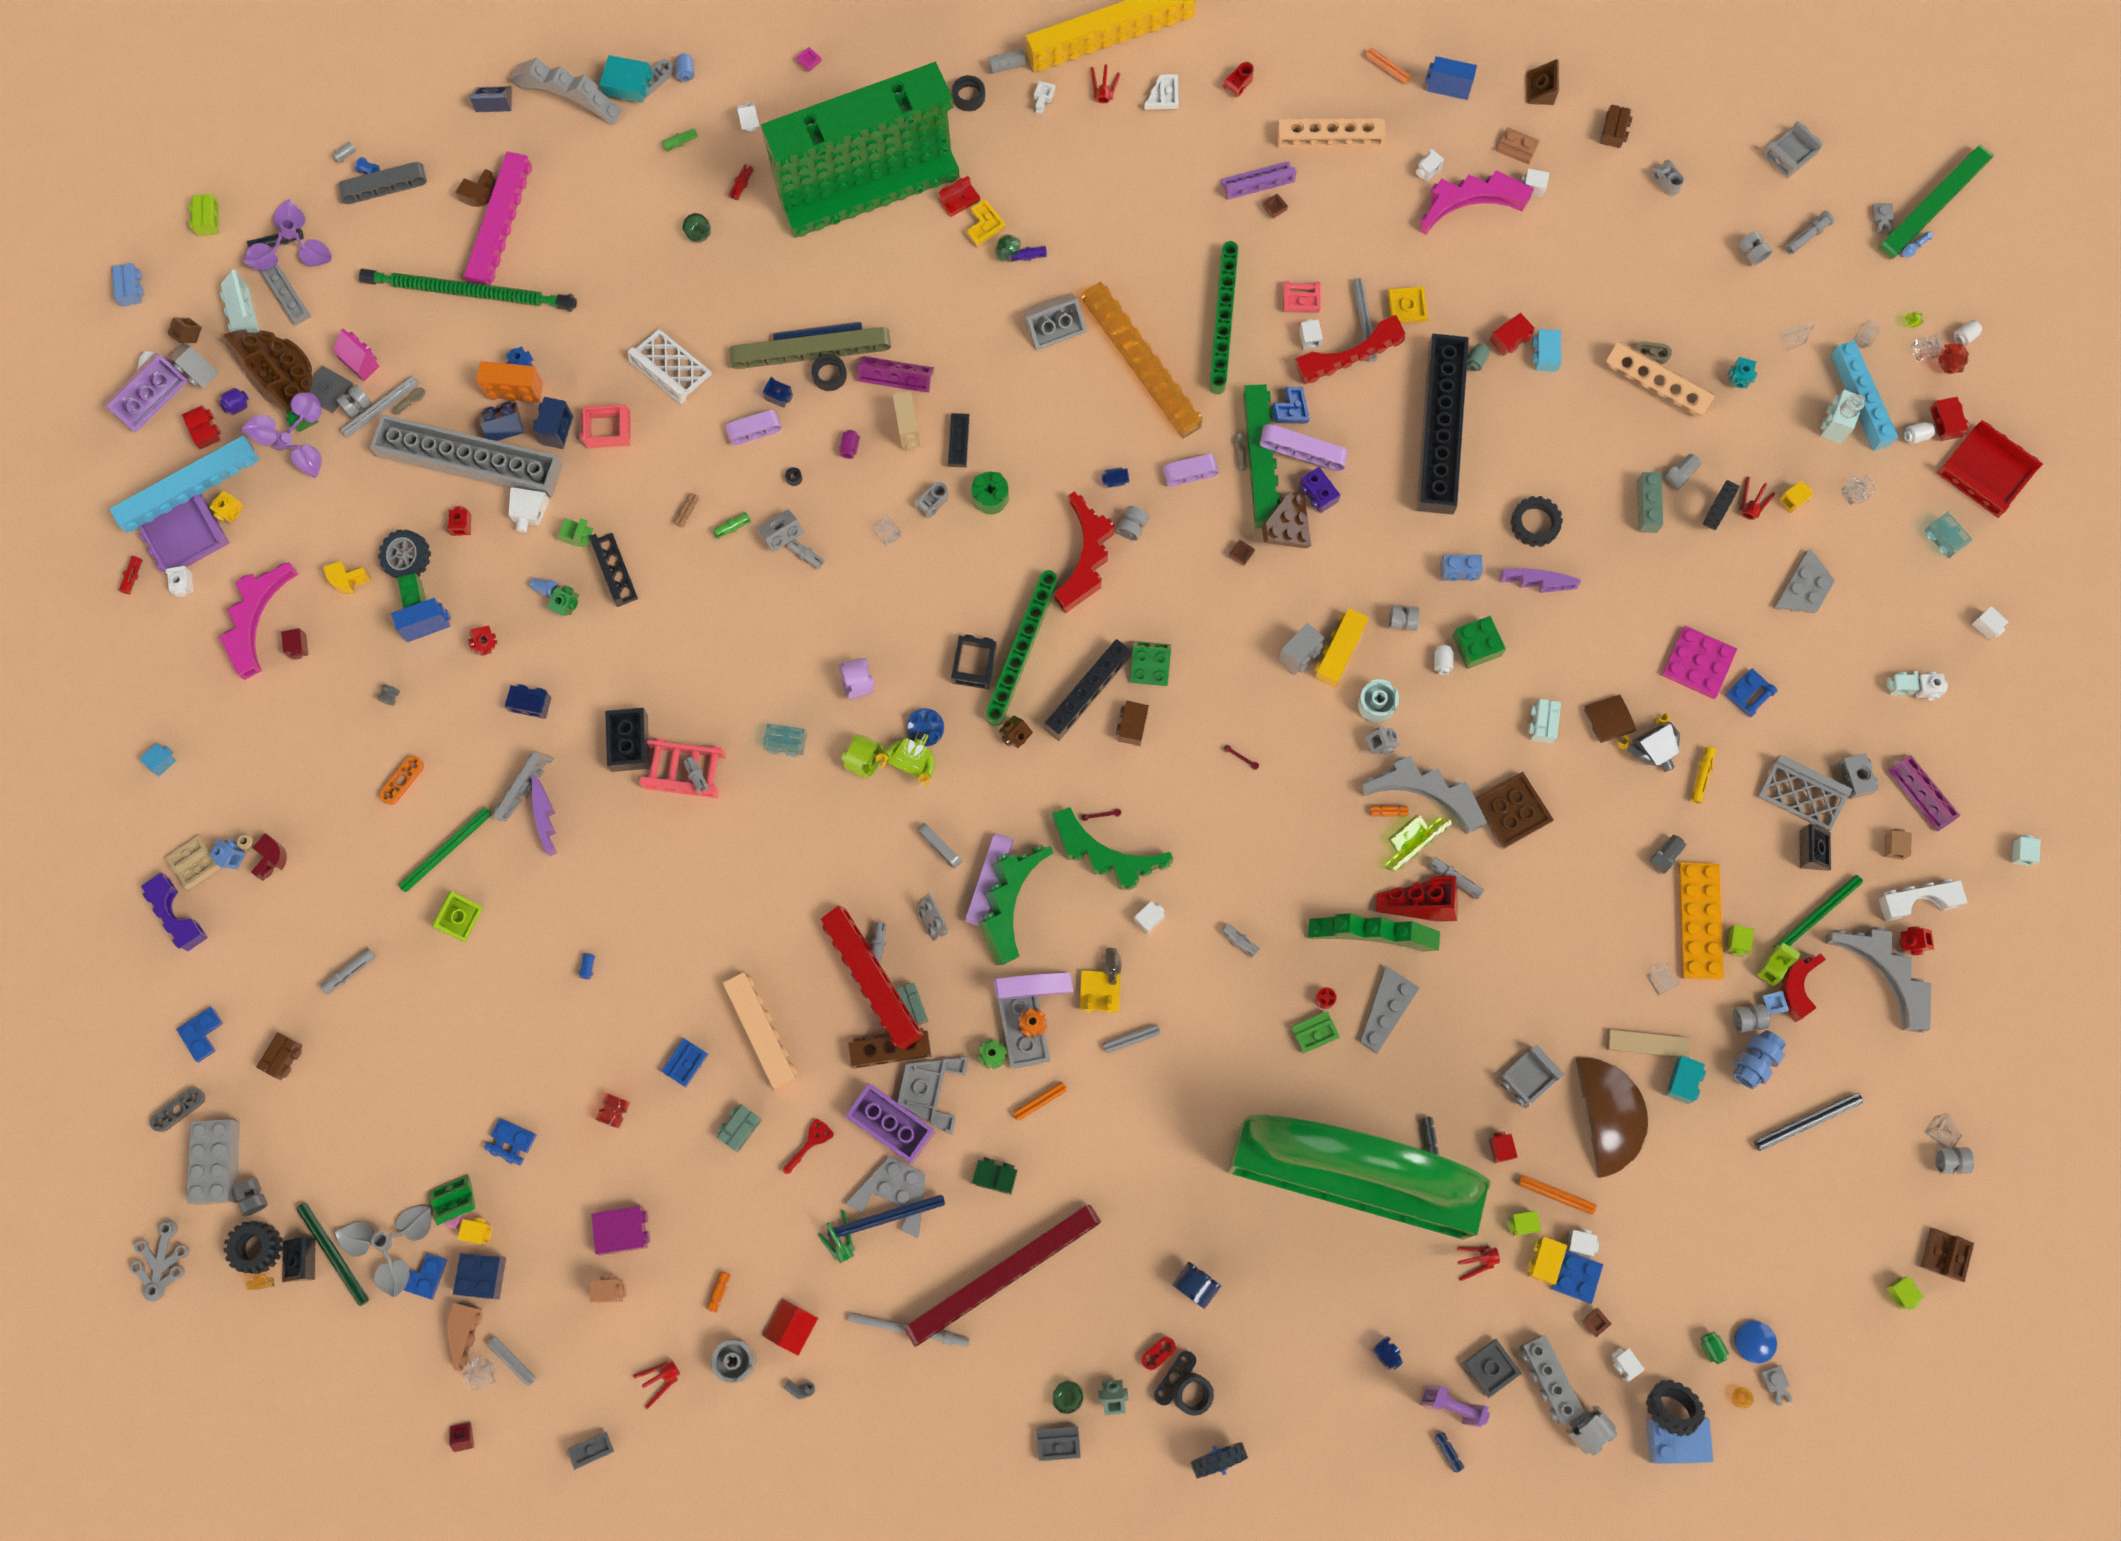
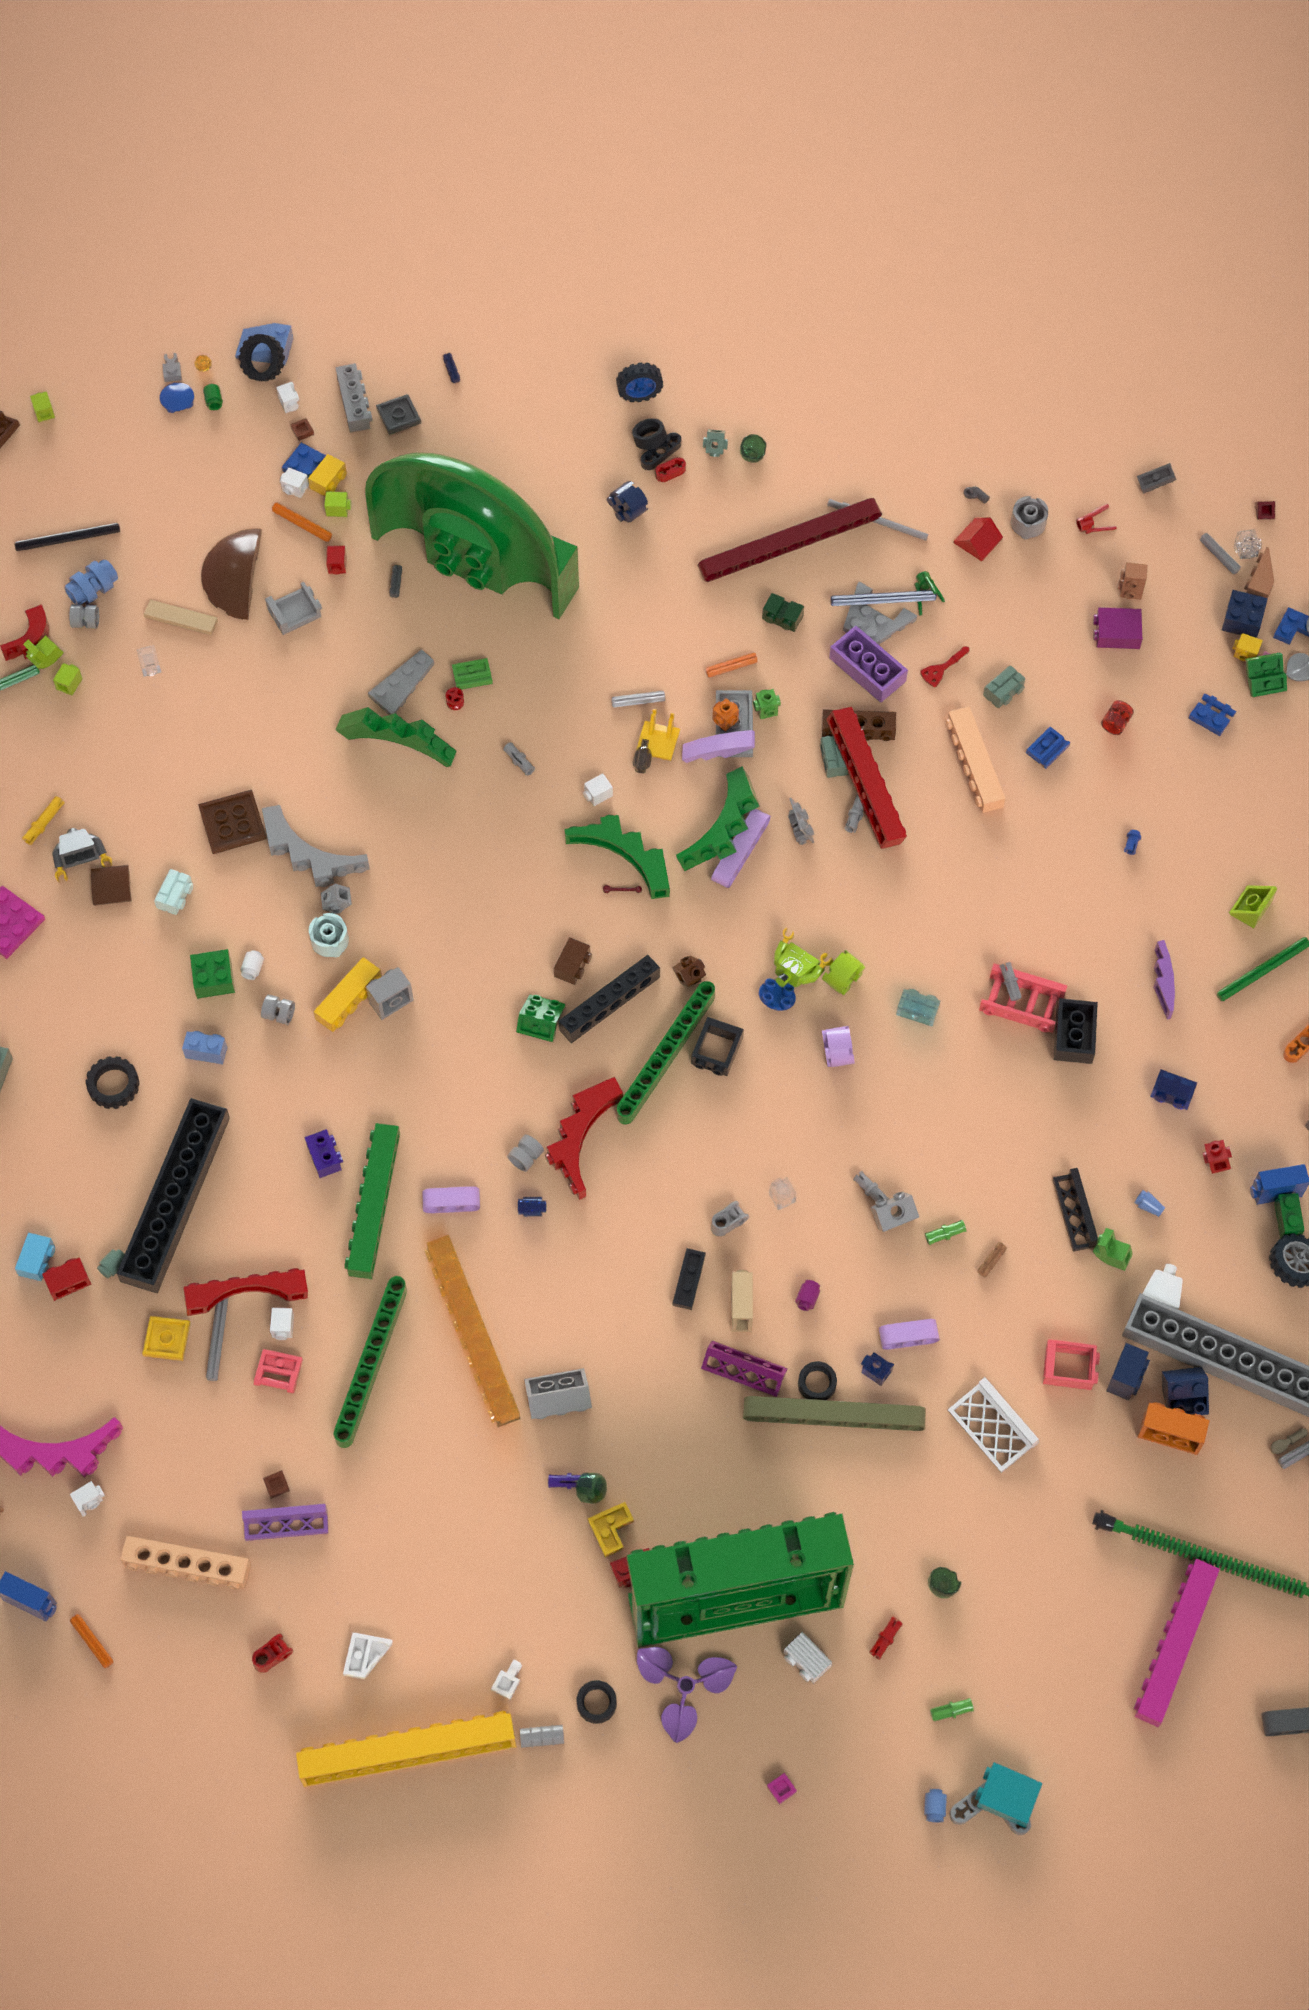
camera: 170 degrees left, 10 degrees down
(463, 525) = (1237, 1281): red brick -> none
(477, 193) = (1202, 1681): reddish brown brick -> none
(492, 99) = (1176, 1813): dark blue slope -> none
(519, 357) = (1160, 1462): blue brick -> none
(522, 785) = (1182, 1008): light grey wing -> none
(563, 600) = (1130, 1181): green brick -> none
(581, 89) = (1089, 1793): light grey arch -> none
(718, 1291) = (1037, 572): orange axle -> none
(748, 116) = (866, 1717): white brick -> none
(793, 482) = (871, 1280): black bush -> none
(818, 331) = (822, 1433): dark blue axle -> none
(922, 1089) = (834, 691): light grey wing -> none
(939, 845) = (783, 886): light grey beam -> none
(986, 483) = (669, 1202): green brick -> none
(1058, 1443) = (767, 423): dark grey plate -> none
(1103, 93) = (434, 1670): red plant -> none
(1240, 444) = (391, 1221): dark tan piece -> none
(1241, 552) = (421, 1106): copper plate -> none
(1254, 765) = (463, 907): dark red hinge -> none
(1288, 522) = (365, 1120): reddish brown plate -> none
(1294, 409) = (323, 1240): blue plate -> none
(1303, 447) = (327, 1193): lavender beam -> none
(1387, 1354) = (481, 436): clear blue brick -> none
(1389, 811) = (348, 843): orange axle -> none
(1412, 838) = (333, 811): clear neon green bracket -> none
(1428, 900) = (339, 759): red wedge -> none
(1437, 1398) = (452, 375): medium lavender fence -> none
(1462, 882) = (310, 780): light grey pin -> none
(1546, 580) = (125, 1021): medium lavender slope -> none
(1592, 1431) = (332, 354): light grey brick -> none
(1666, 856) = (108, 756): dark grey piece -> none
(1686, 1079) = (160, 580): teal brick -> none
(1701, 921) = (95, 704): light orange plate -> none
(1775, 1003) = (57, 626): light blue plate -> none

